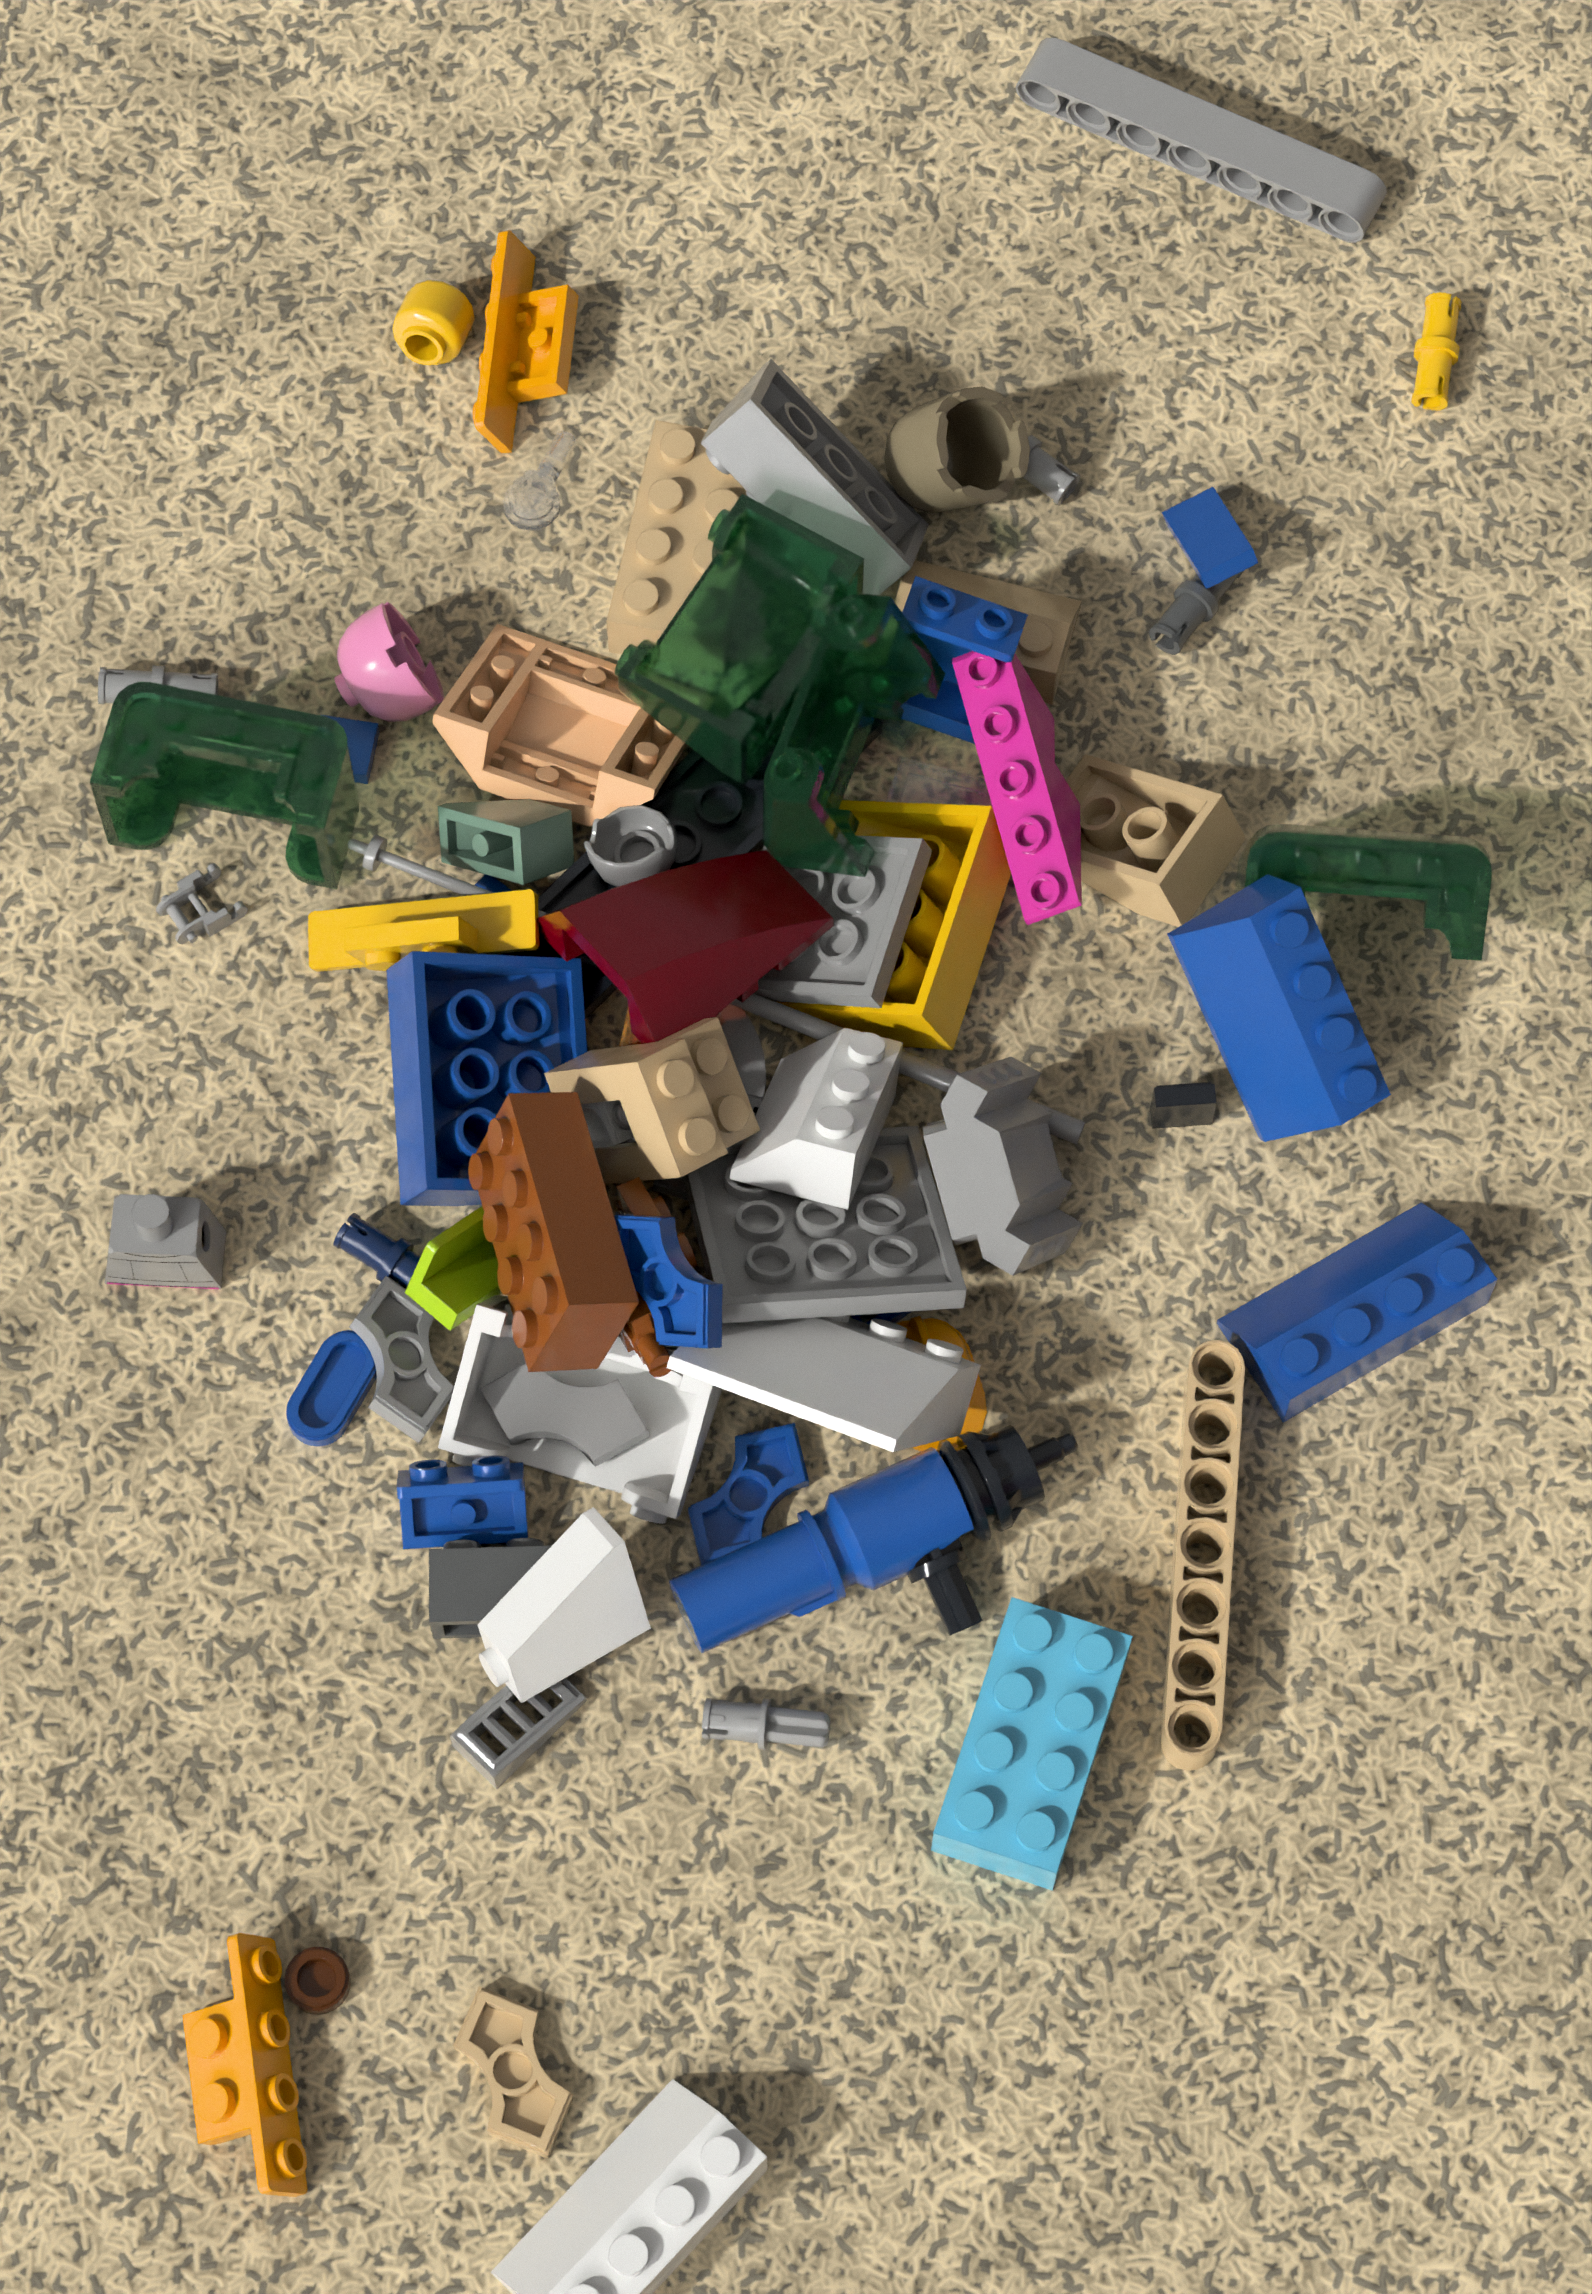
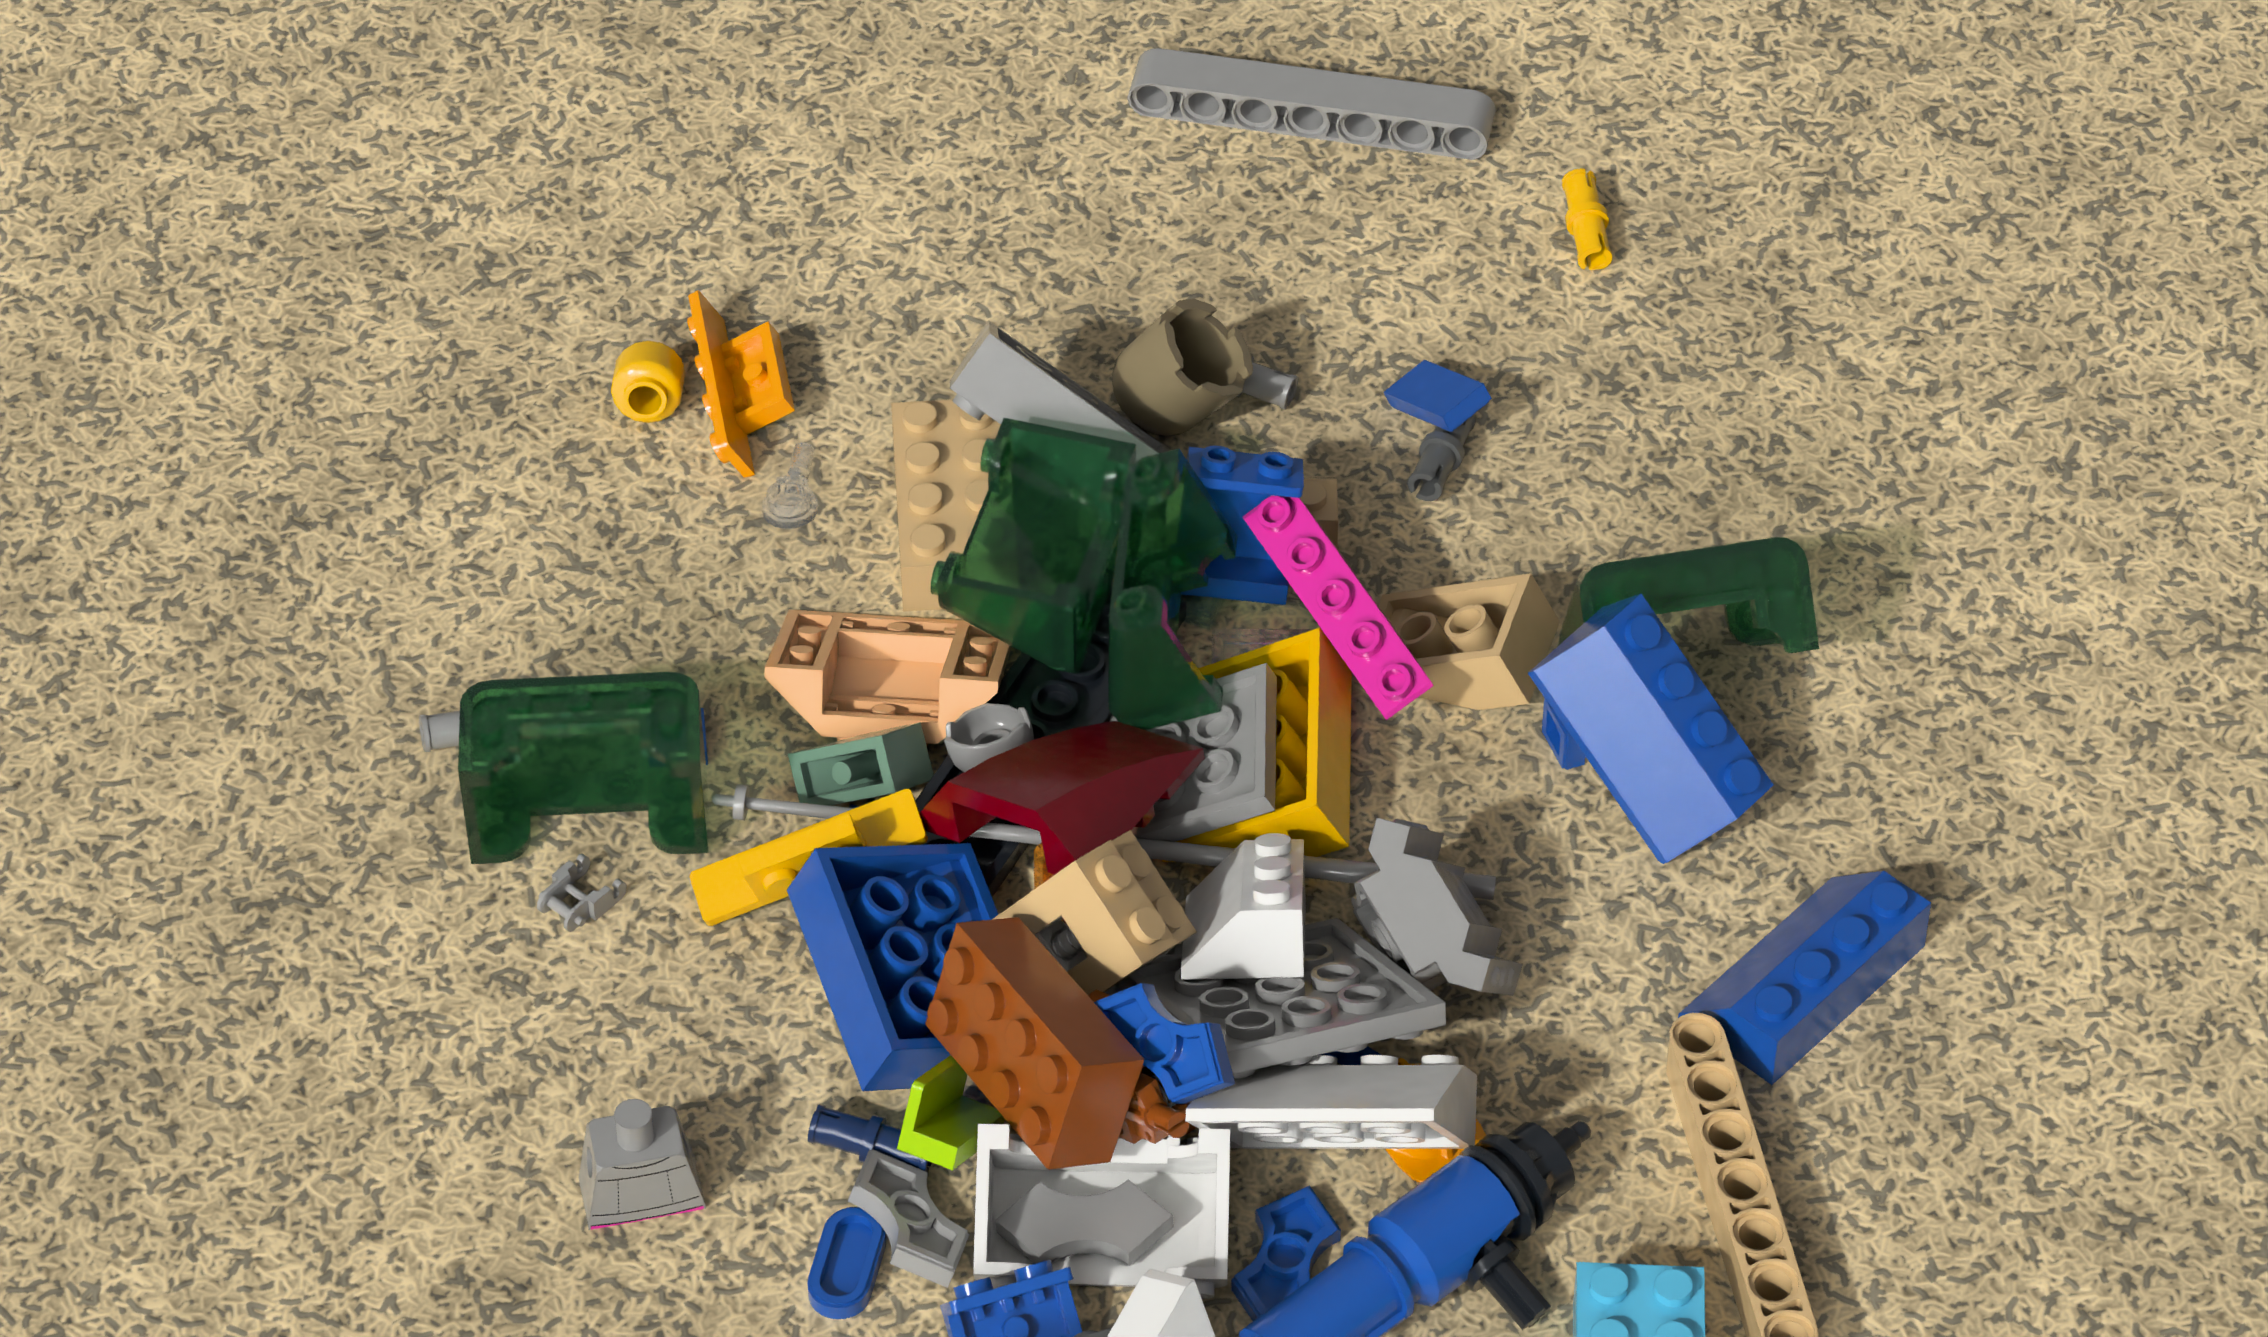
camera: 15 degrees left, 20 degrees down
(385, 668) = (693, 645): bright pink cylinder -> none
(1183, 1105) = (1582, 843): black tile -> none

